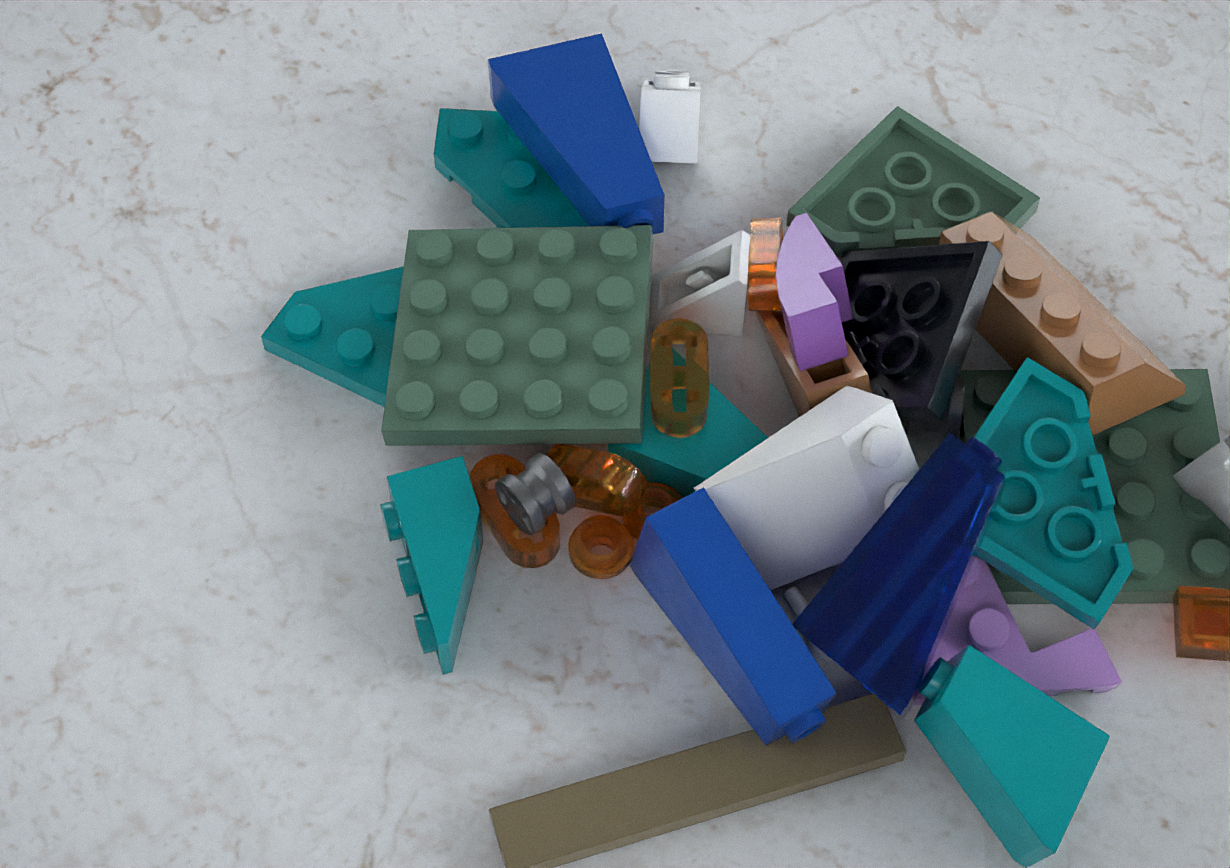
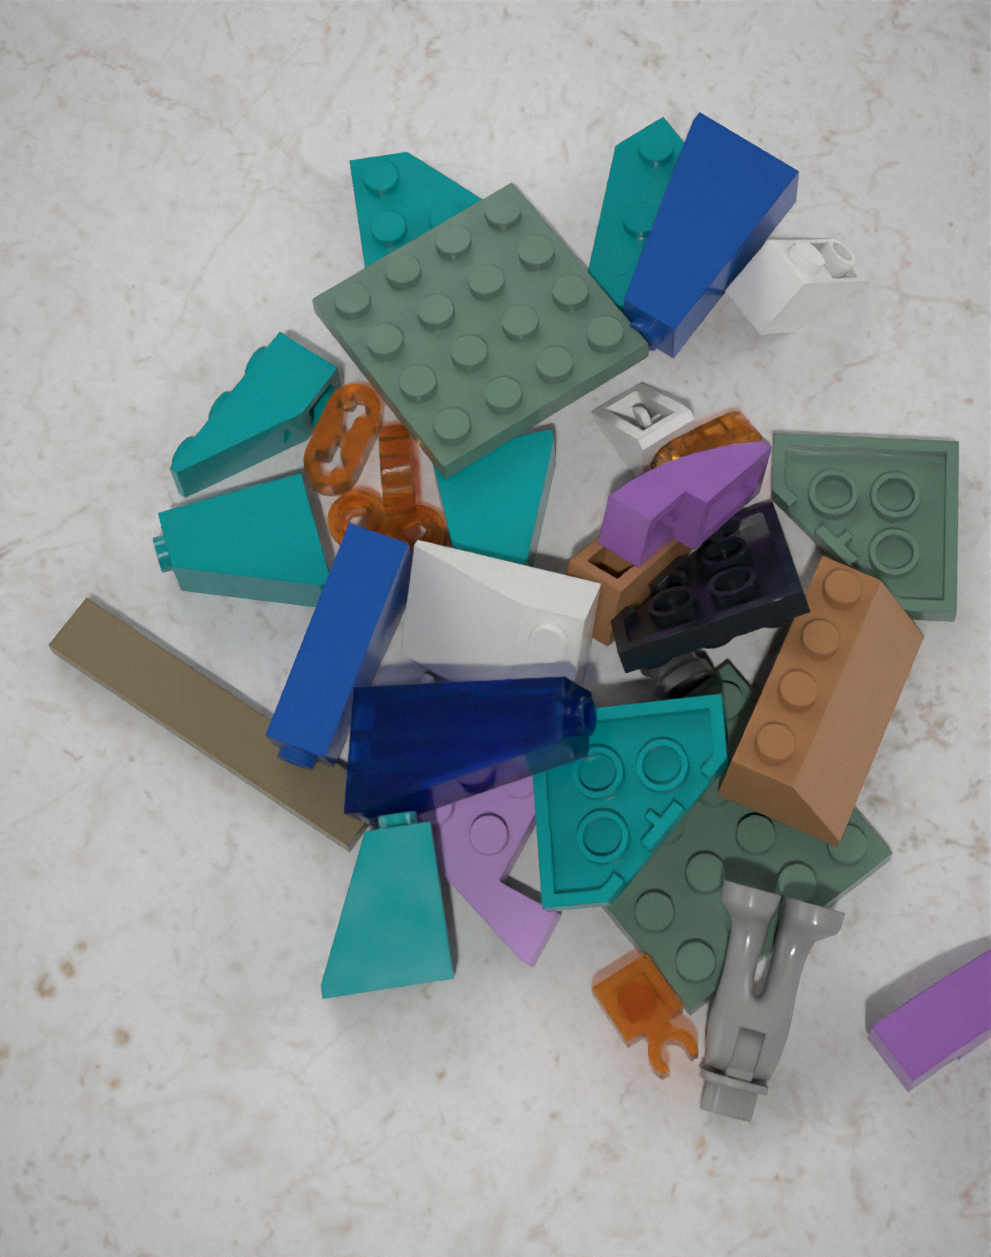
camera: 60 degrees right, 10 degrees up
(535, 494) = (344, 440): flat silver wheel -> none
(561, 639) = (247, 545): none -> teal slope
(691, 377) = (511, 453): clear orange beam -> none

